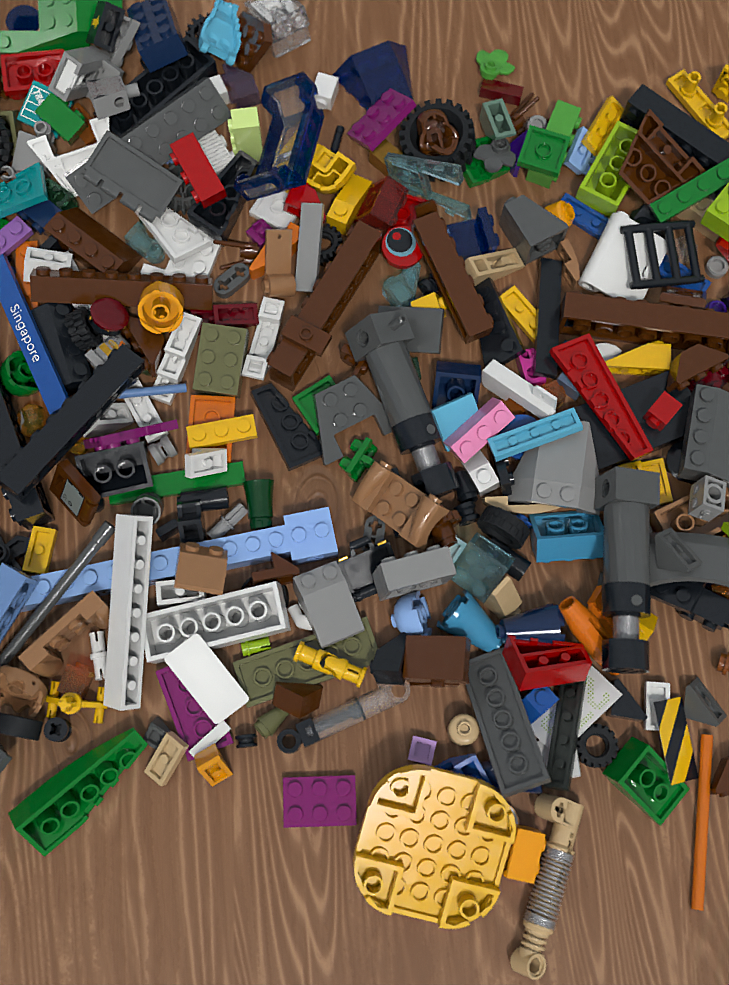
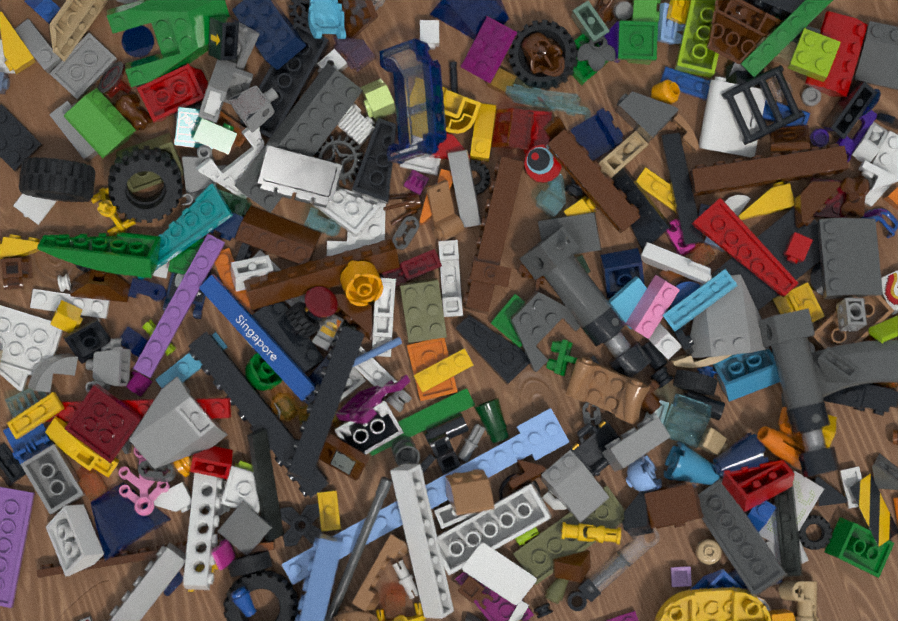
camera: 15 degrees left, 10 degrees up
(169, 690) = (473, 591): none -> reddish brown plate
(197, 171) = (352, 155): red wedge -> none
(205, 462) = (439, 400): white slope -> none

